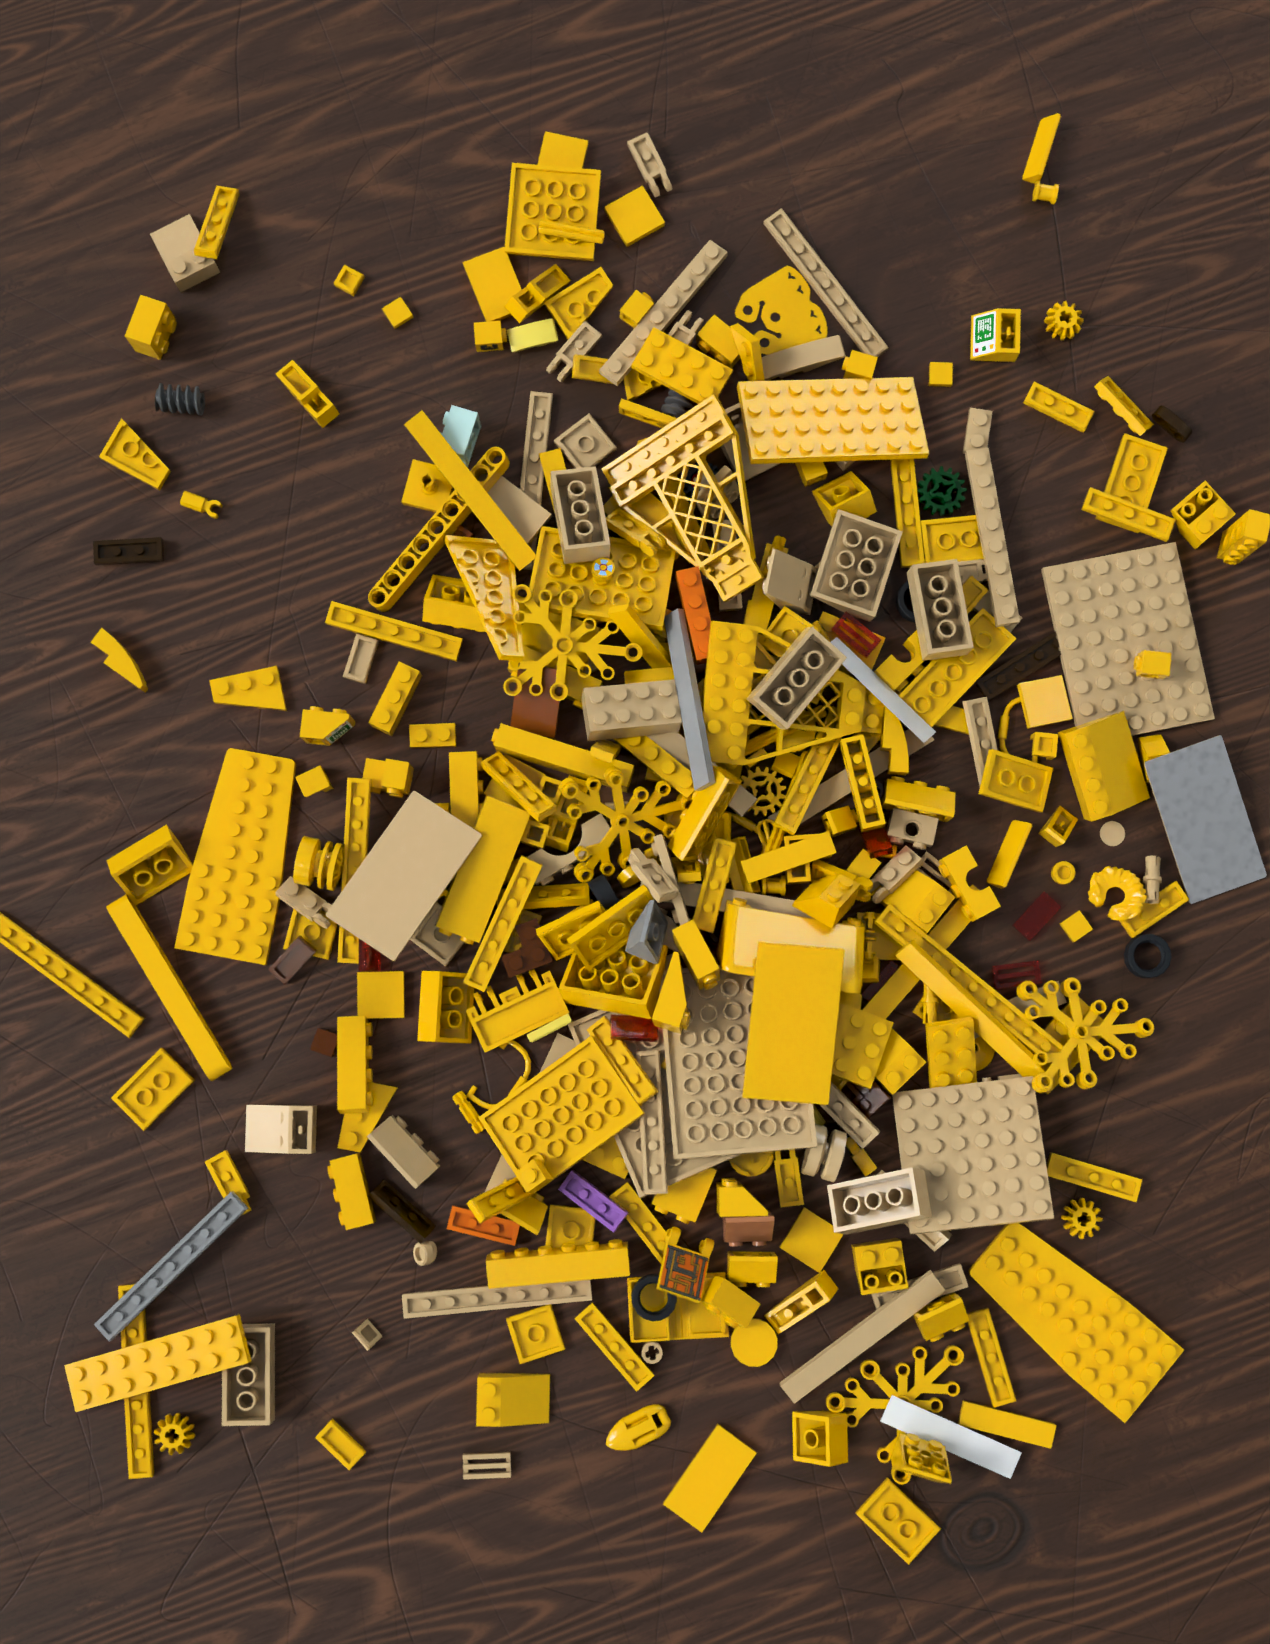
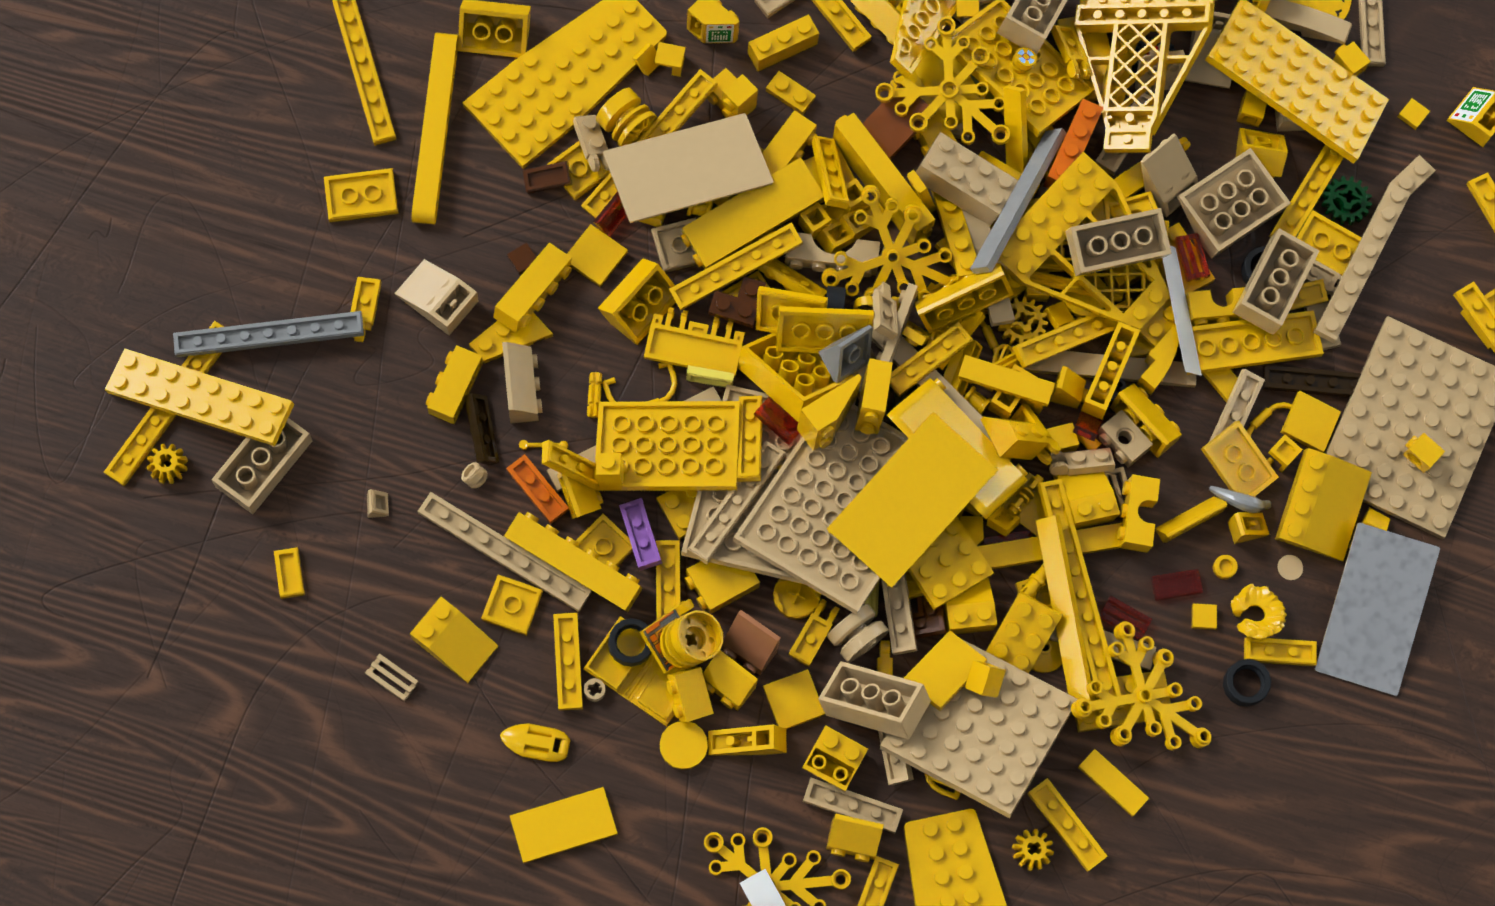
camera: 30 degrees right, 10 degrees down
(294, 797) = (646, 59): none -> yellow tile
(445, 1194) = (523, 444): none -> yellow hinge
(711, 1256) = (691, 639): none -> yellow wheel
(736, 1200) = (759, 605): yellow slope -> none
(820, 1437) = (680, 860): yellow slope -> none
(862, 1336) = (776, 804): tan tile -> none
(914, 1132) = (945, 669): none -> yellow tile
(951, 1117) = (985, 679): none -> yellow panel
(1038, 813) = (1240, 500): none -> light grey piece
(1103, 1115) = (1113, 782): none -> yellow tile
(1152, 879) = (1296, 624): tan pin -> none

